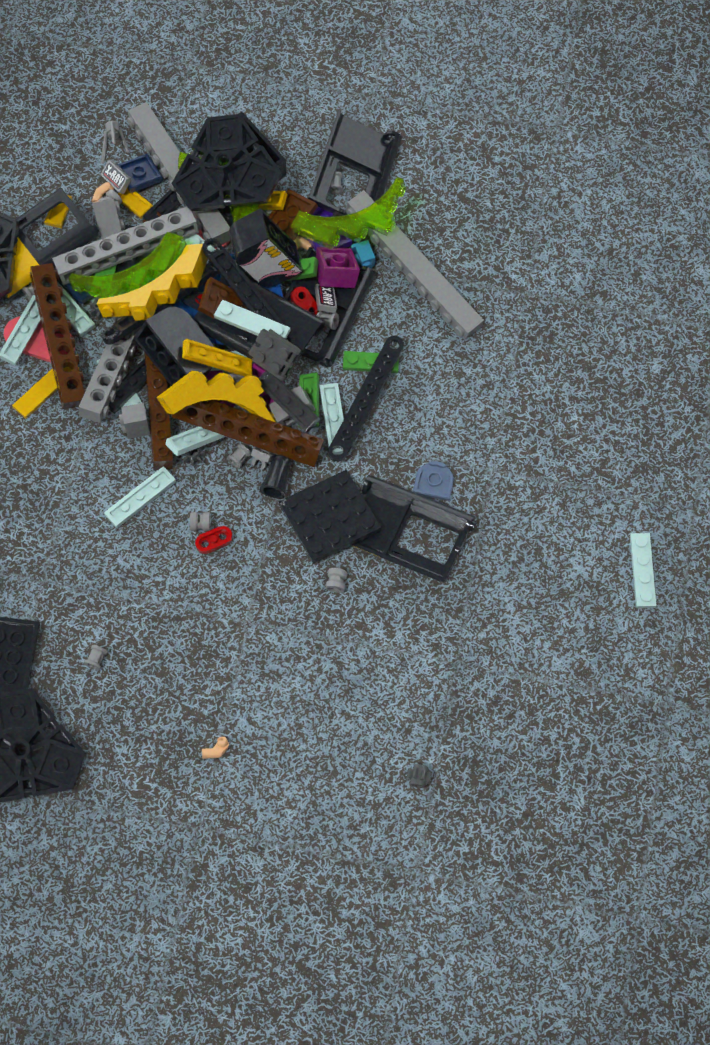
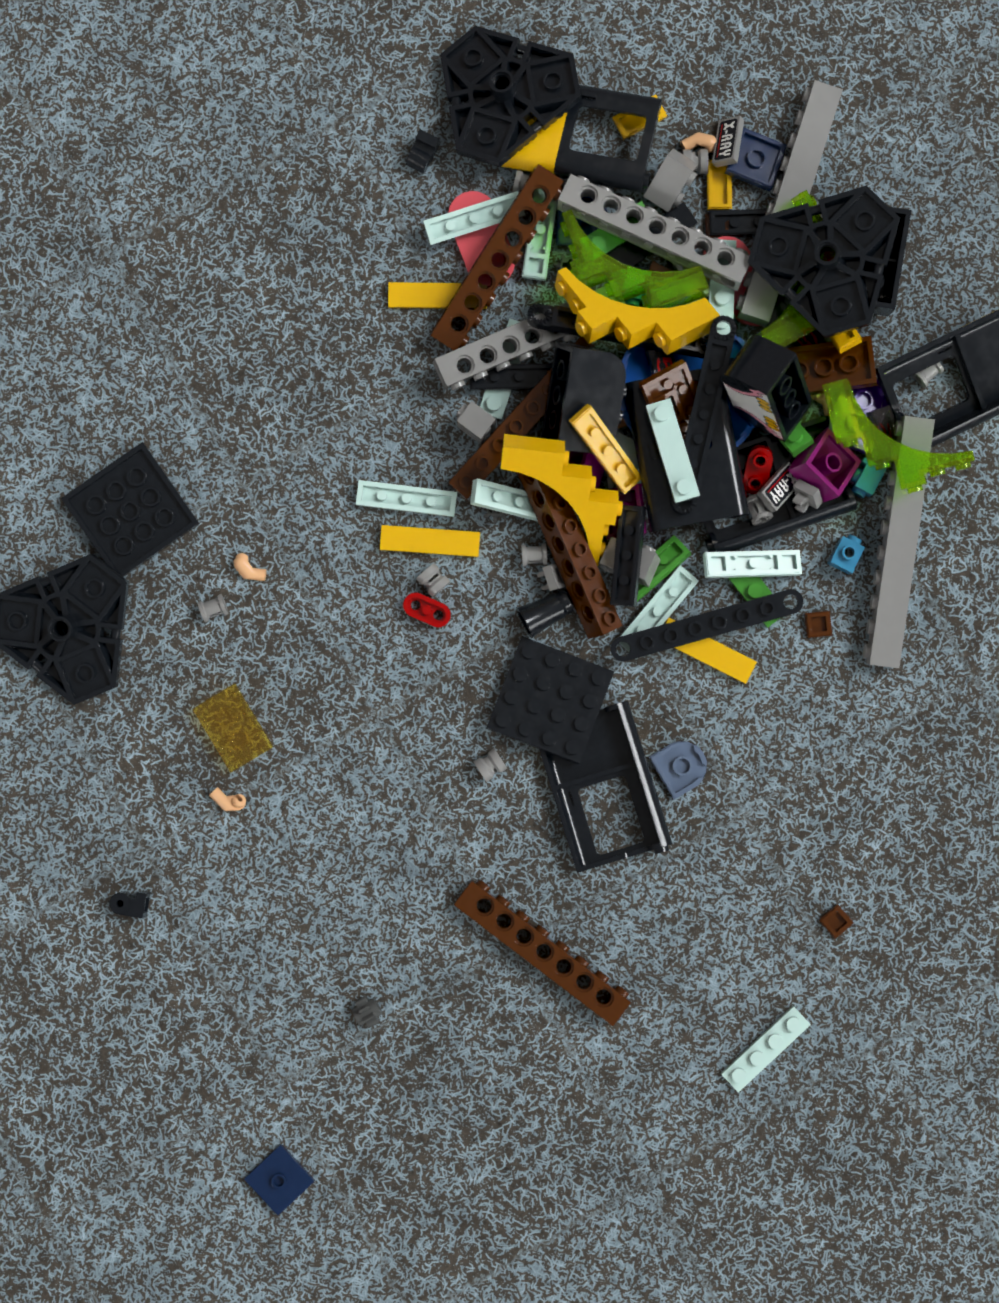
camera: 45 degrees right, 20 degrees up
(93, 620) = (246, 570): none -> light nougat arm
(112, 132) = (779, 85): light grey plant -> none
(176, 506) = (429, 541): none -> yellow tile
(176, 707) = (233, 728): none -> clear yellow plate
(226, 862) = (129, 905): none -> black leg
(272, 353) = (659, 502): dark grey plate -> none
(343, 288) = (806, 496): none -> light grey tile
(354, 347) = (752, 564): none -> light aqua plate
(391, 409) = (719, 657): none -> yellow tile
(398, 303) = (840, 560): none -> dark azure brick
(420, 345) = (818, 624): none -> reddish brown tile
(477, 924) = (279, 1179): none -> dark blue plate
(539, 624) = (608, 1010): none -> reddish brown brick
(600, 471) = (836, 921): none -> reddish brown tile

